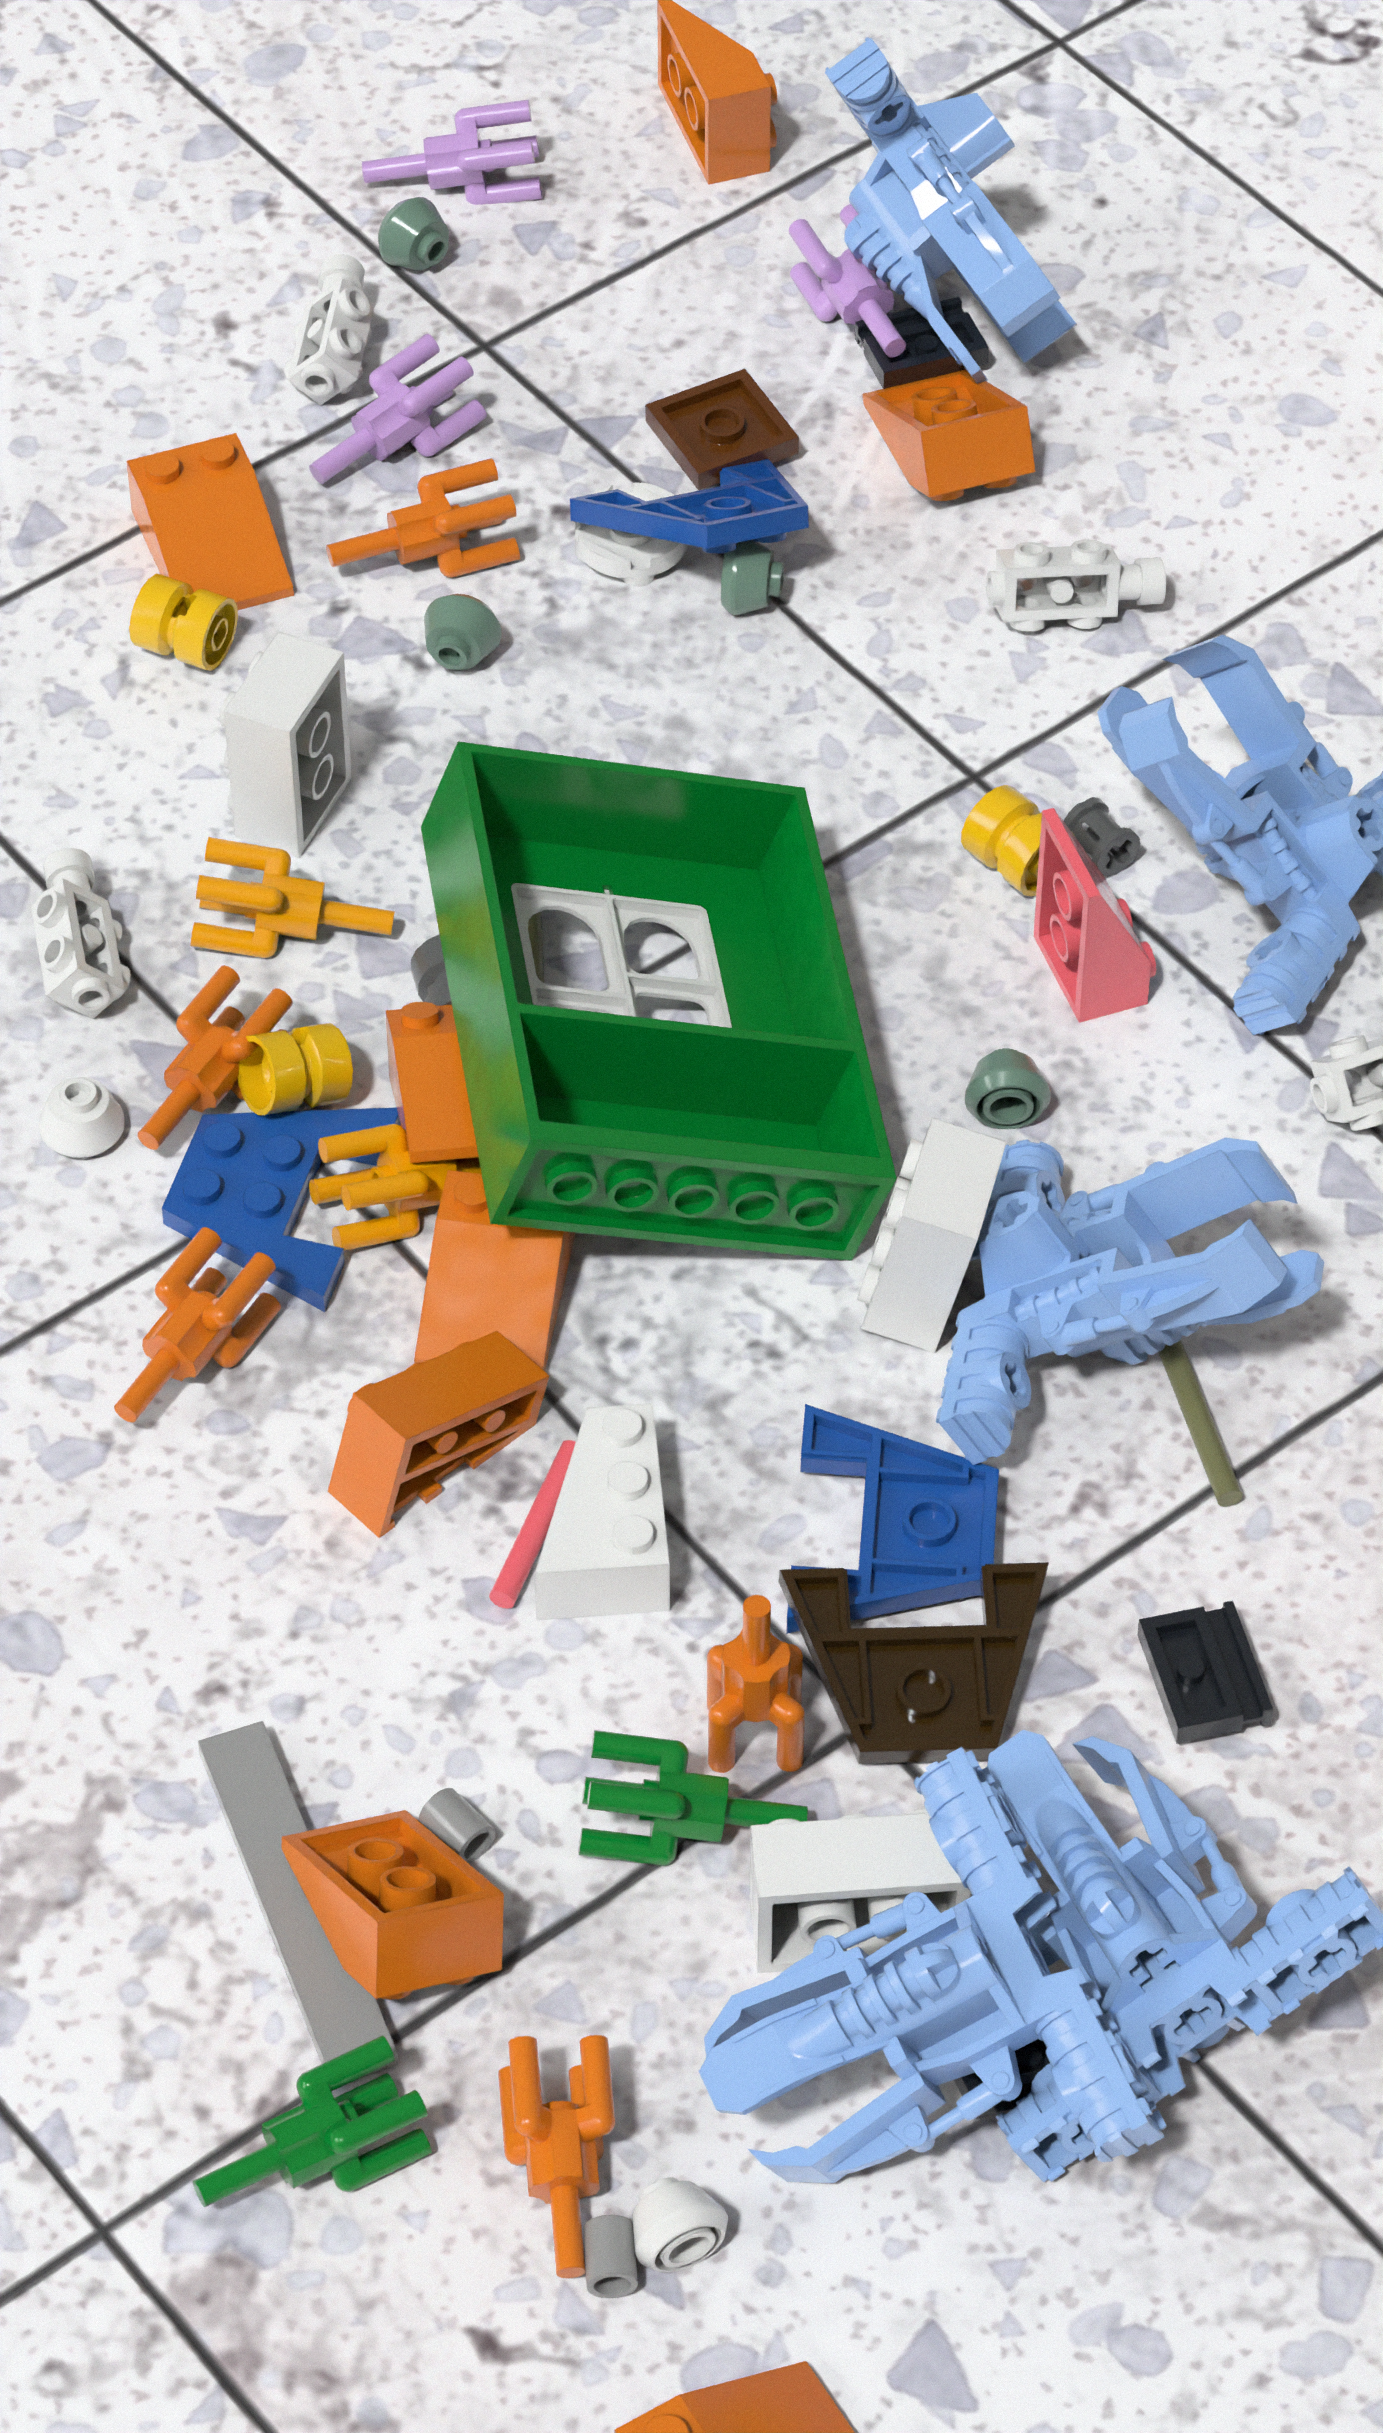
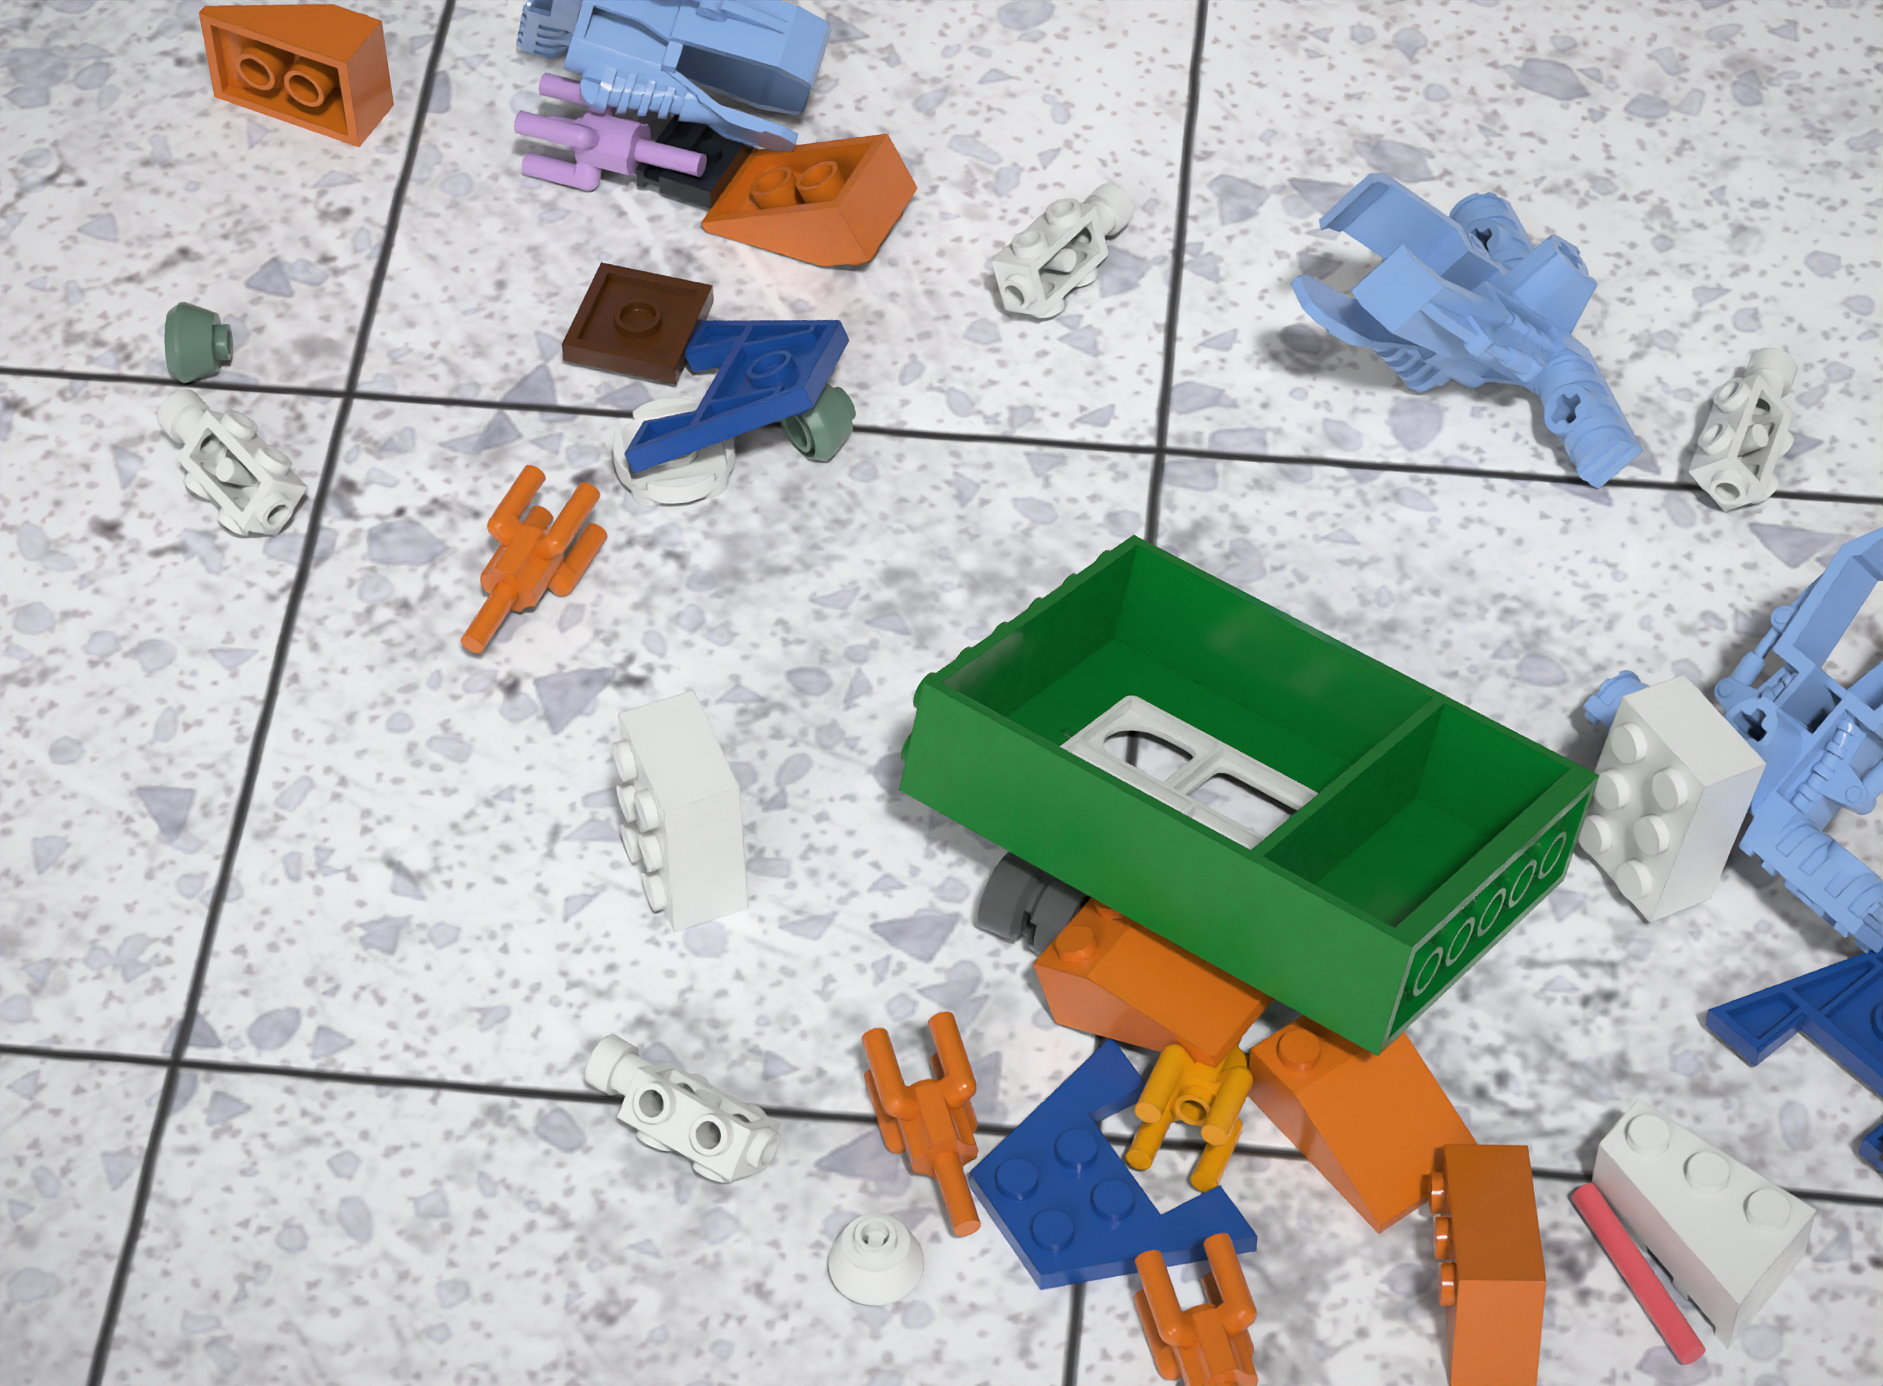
camera: 45 degrees left, 0 degrees up
(181, 621) = (425, 787): yellow wheel -> none
(209, 521) = (336, 698): orange slope -> none
(278, 903) = (801, 957): light orange plant -> none
(296, 1067) = (1013, 1070): yellow wheel -> none
(404, 412) = (378, 487): lavender plant -> none
(460, 631) = (655, 626): sand green cone -> none
(466, 158) = (160, 248): lavender plant -> none
(1006, 836) = (1280, 467): yellow wheel -> none
(1007, 1090) = (1516, 657): sand green cone -> none
(1086, 929) = (1430, 488): coral slope -> none
(1102, 836) = (1339, 435): dark grey bush -> none

